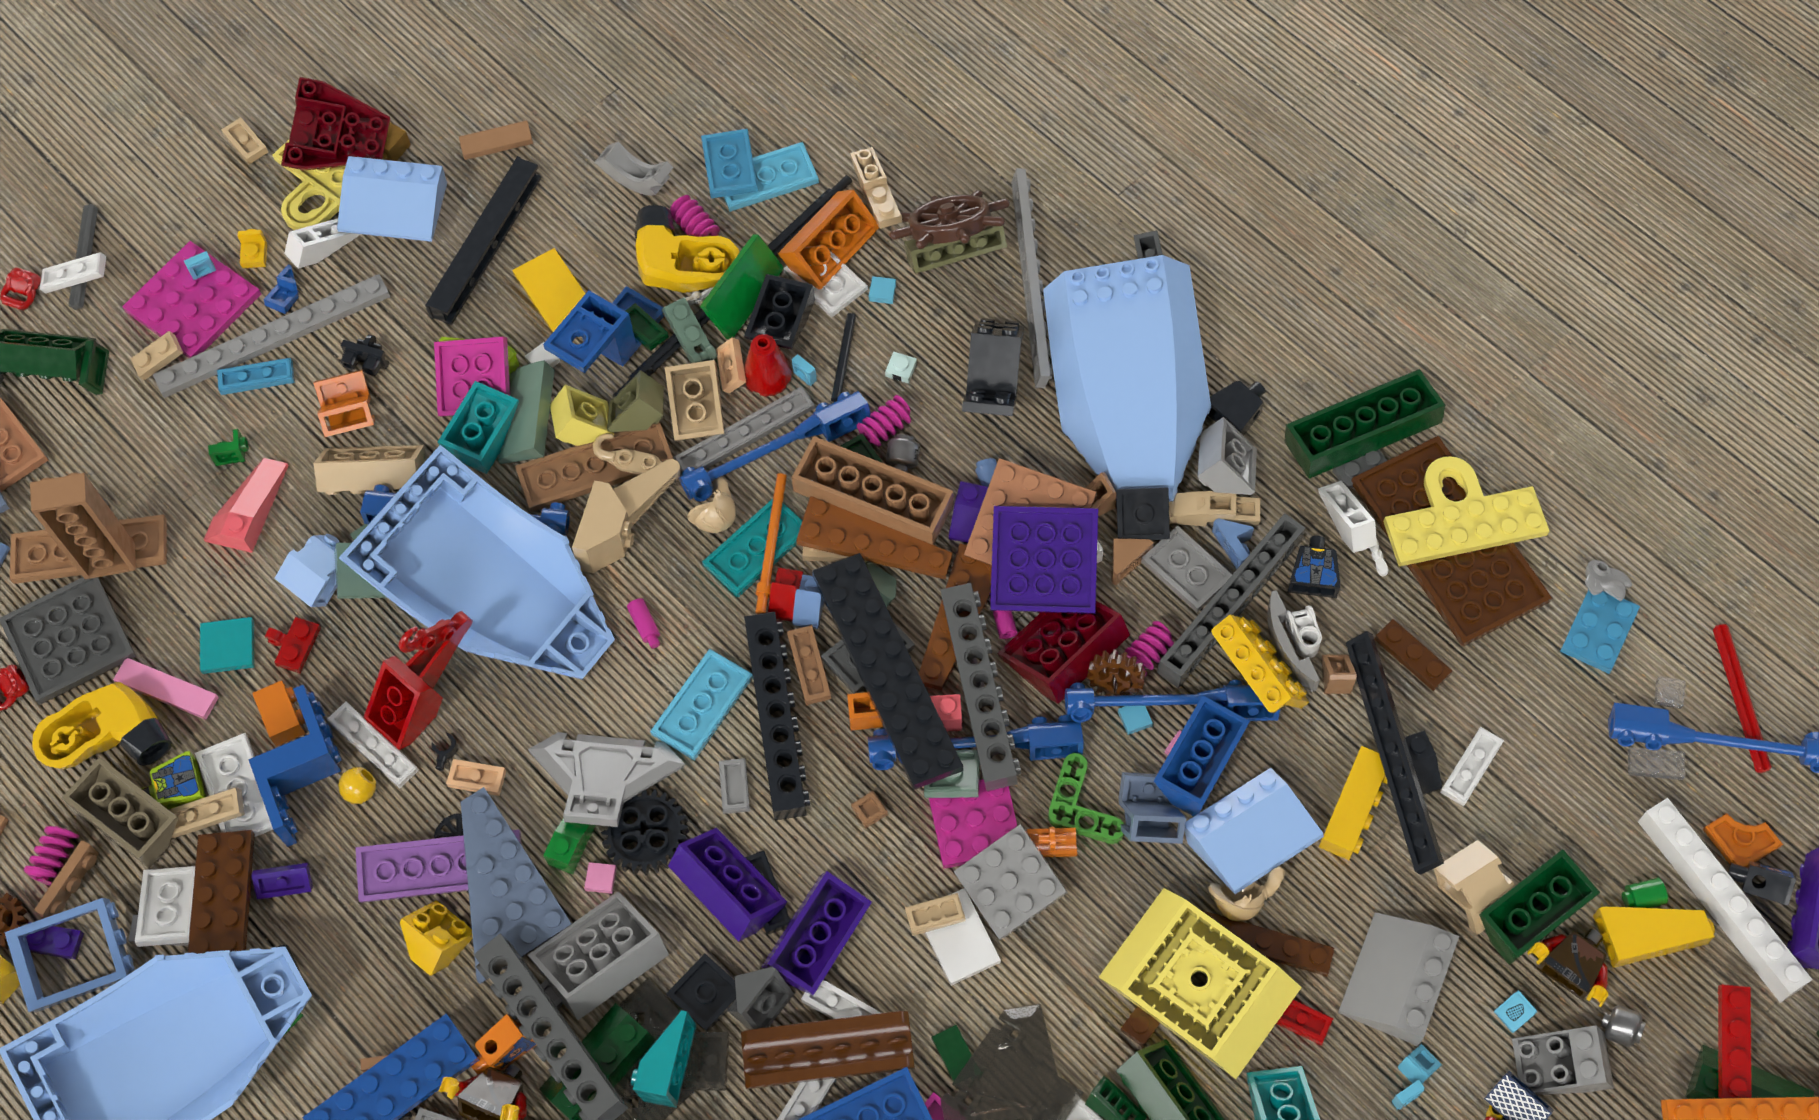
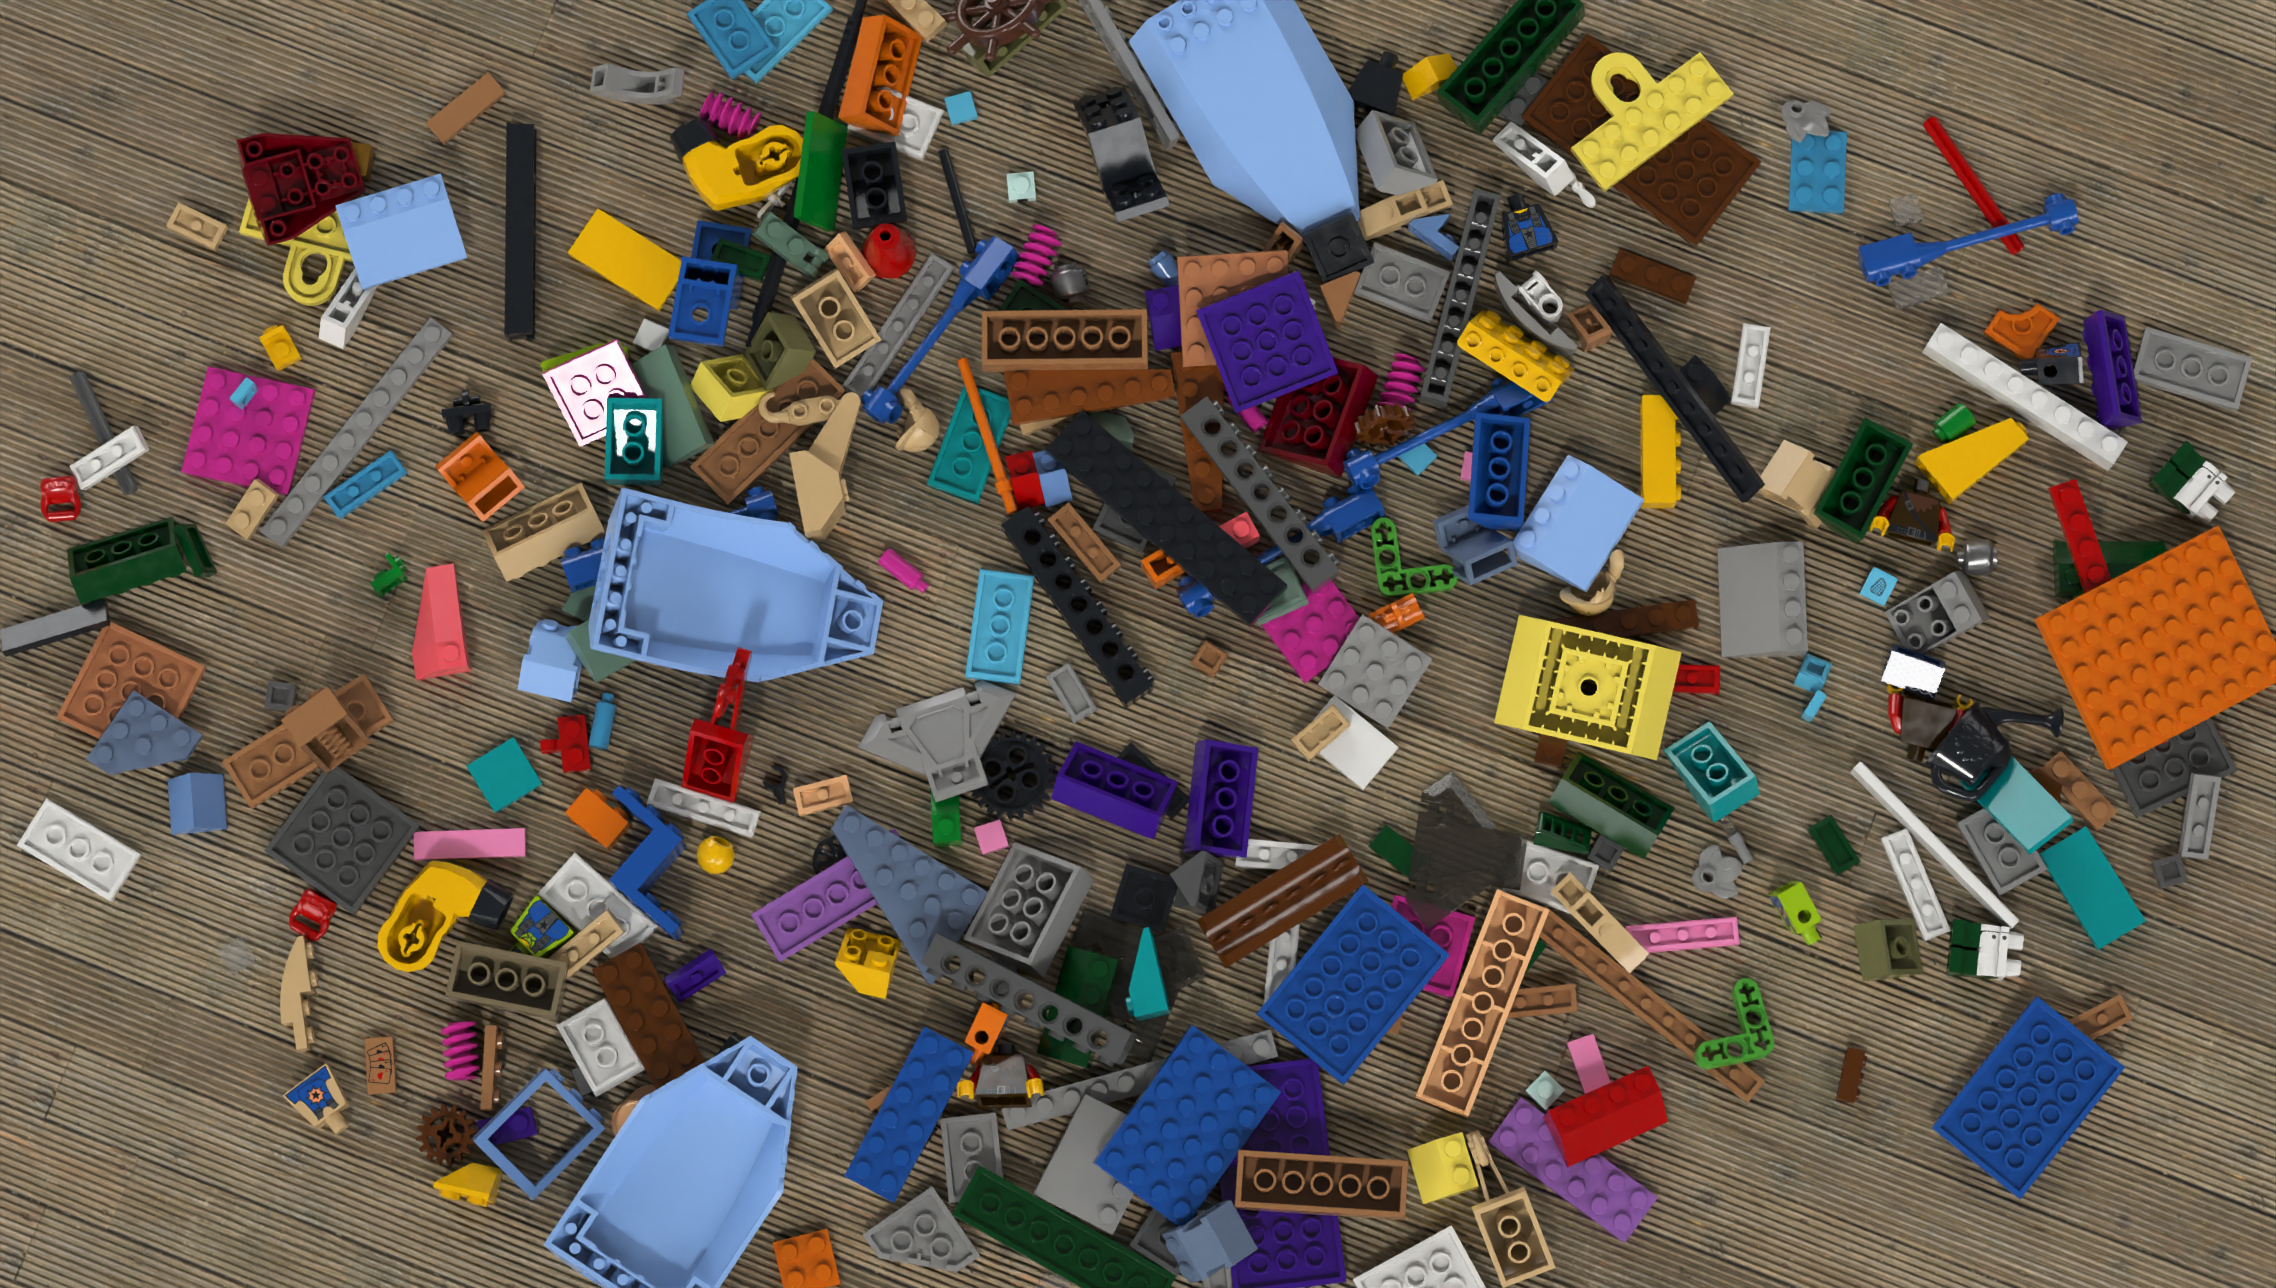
camera: 25 degrees left, 15 degrees up
(284, 293) = (341, 380): blue slope -> none
(329, 637) = (602, 722): none -> dark azure cylinder
(804, 370) = (926, 235): medium azure tile -> none
(1282, 412) = (1428, 75): none -> yellow slope

